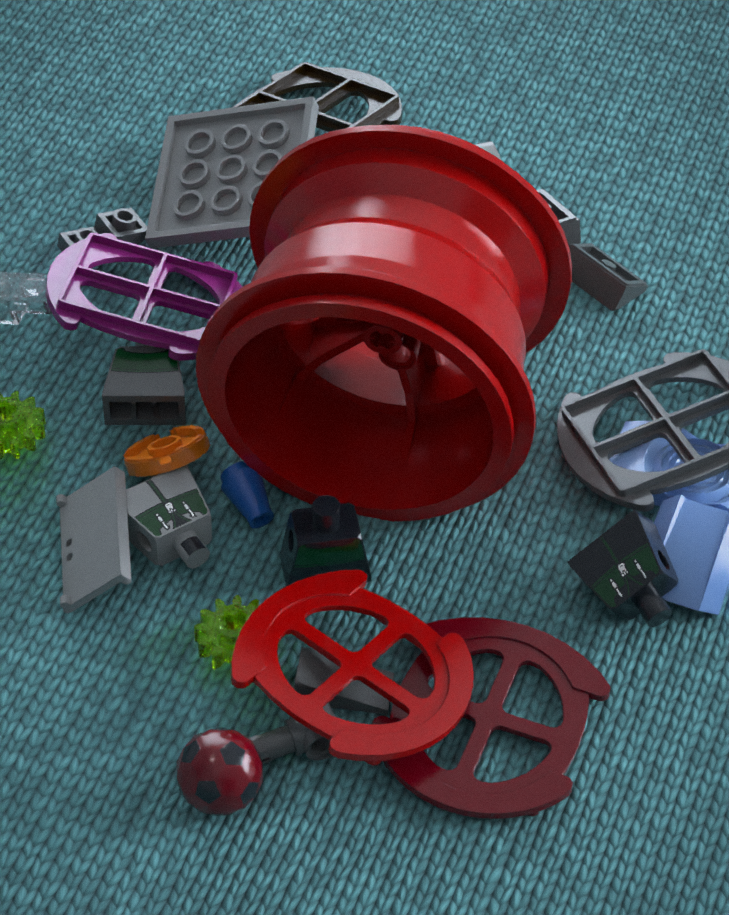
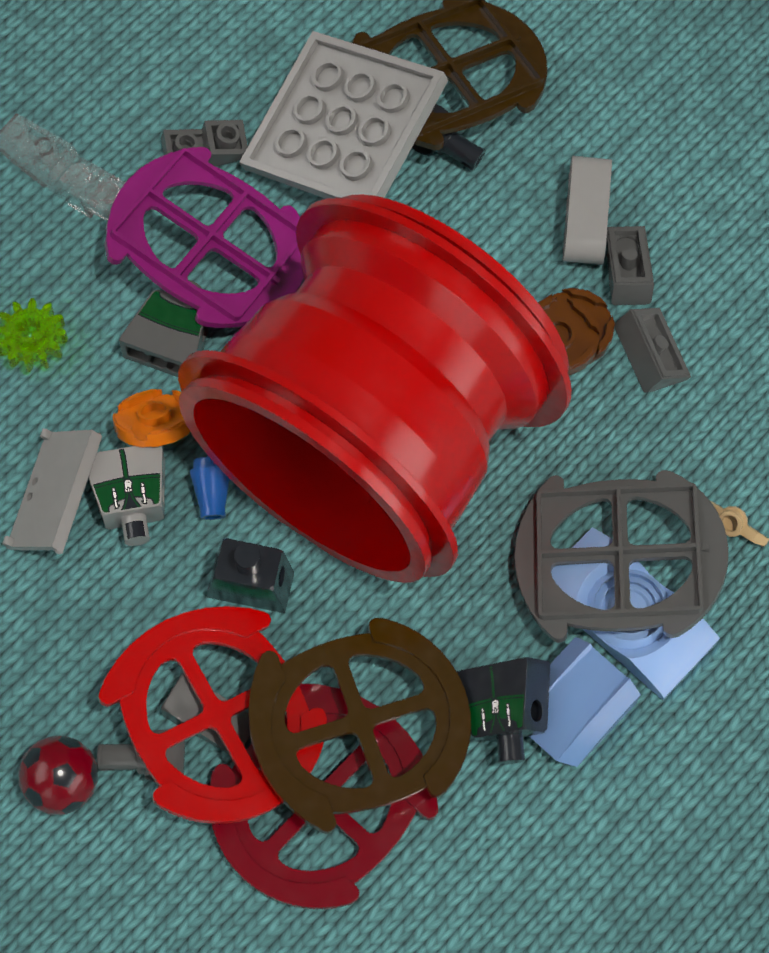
camera: 20 degrees right, 20 degrees up
(220, 629) = (125, 619): clear neon green gear -> none
(498, 702) = (278, 747): none -> dark brown window

